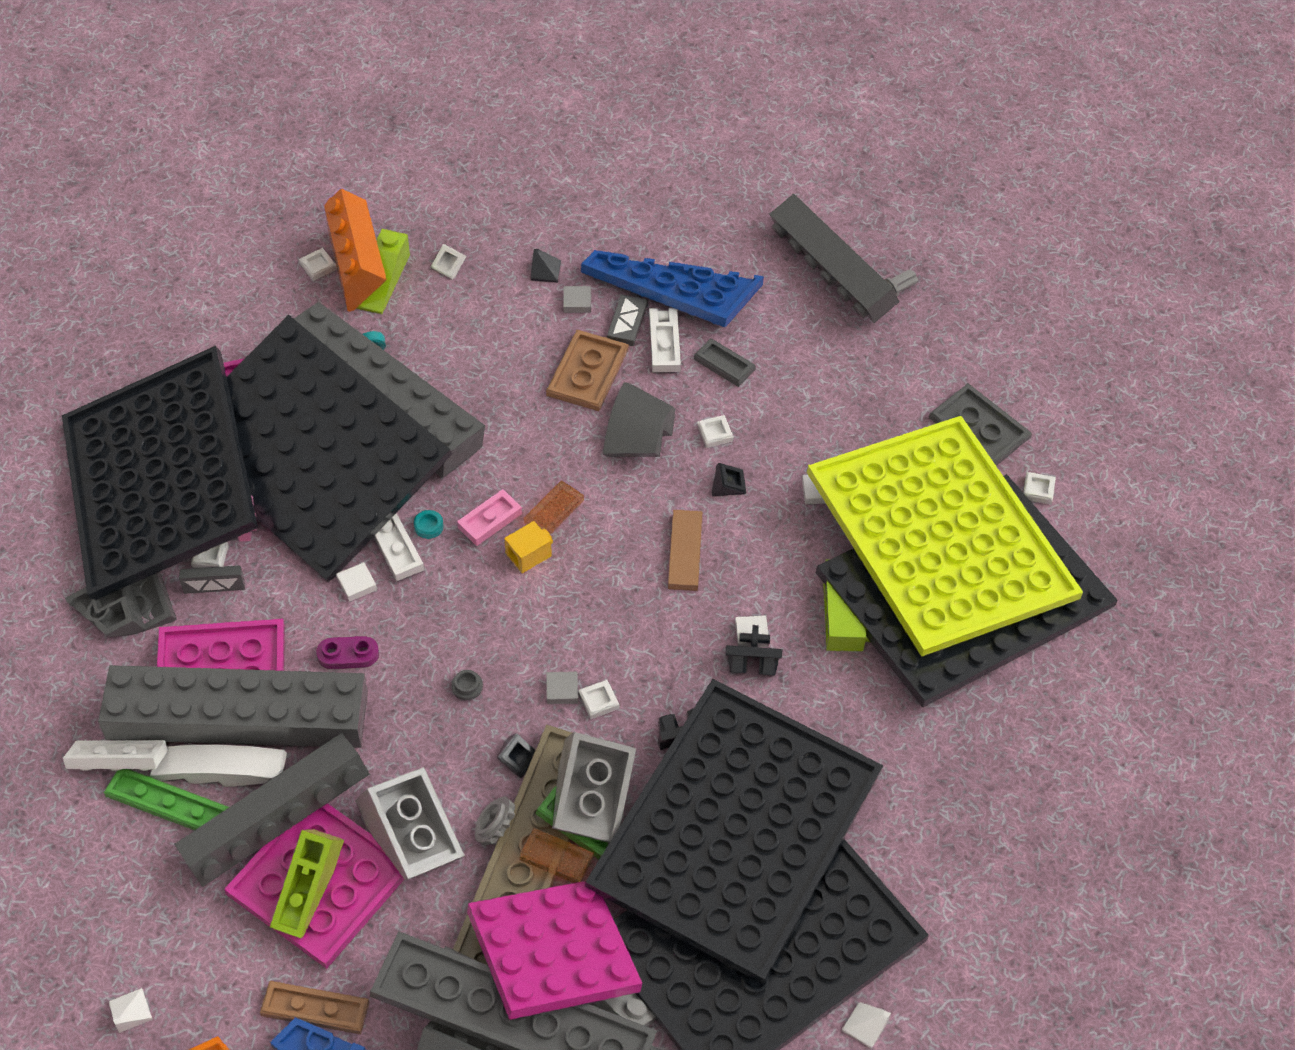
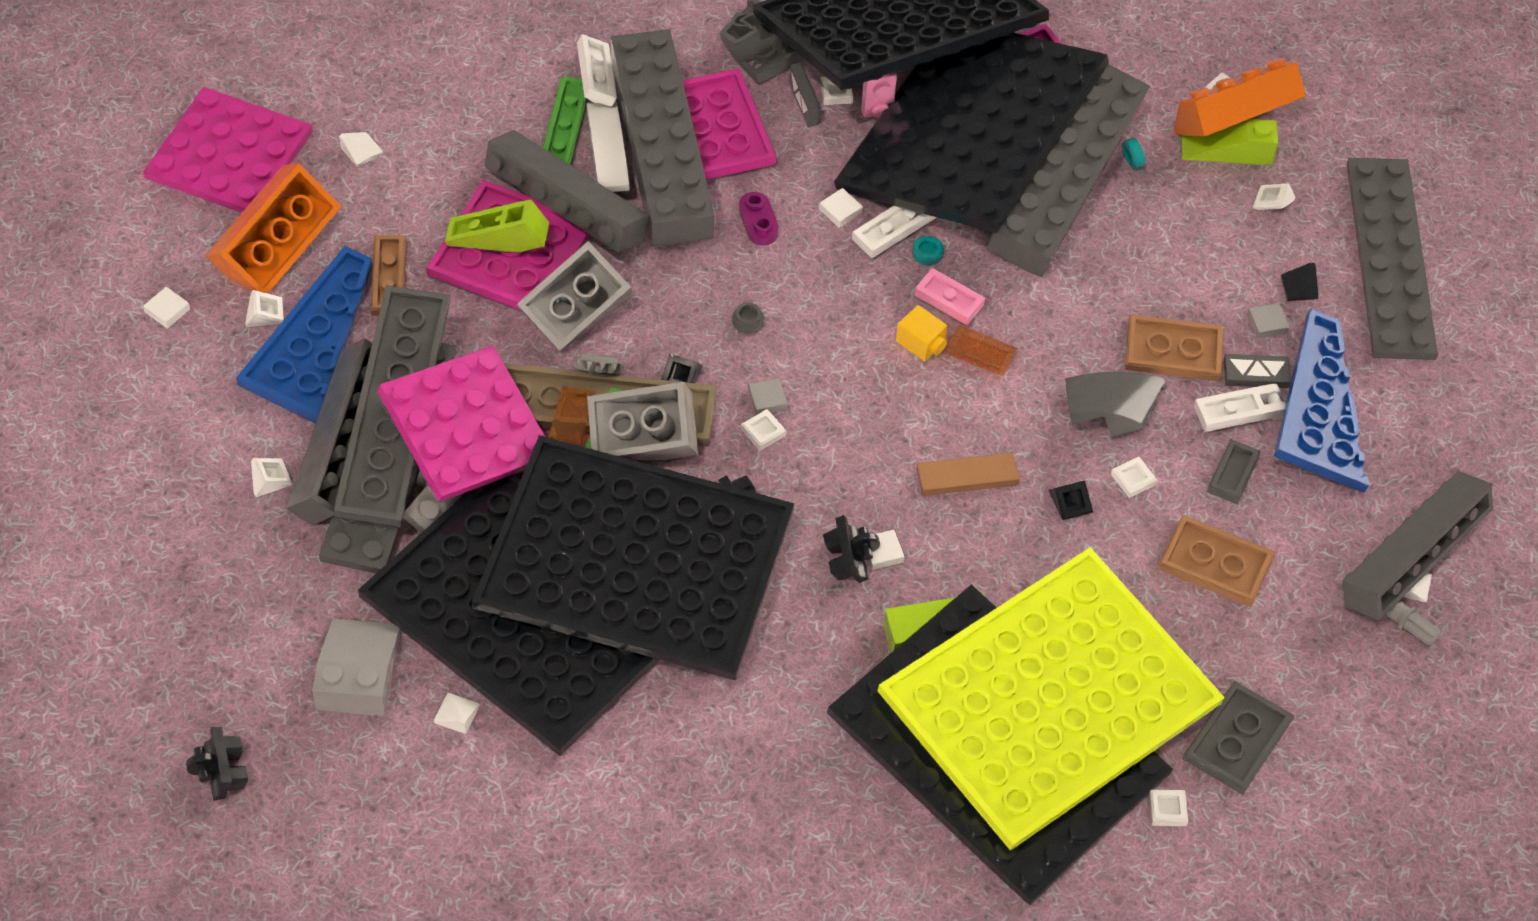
camera: 75 degrees right, 0 degrees up
(534, 202) = (1391, 259): none -> dark grey plate
(810, 396) = (1216, 560): none -> medium nougat tile

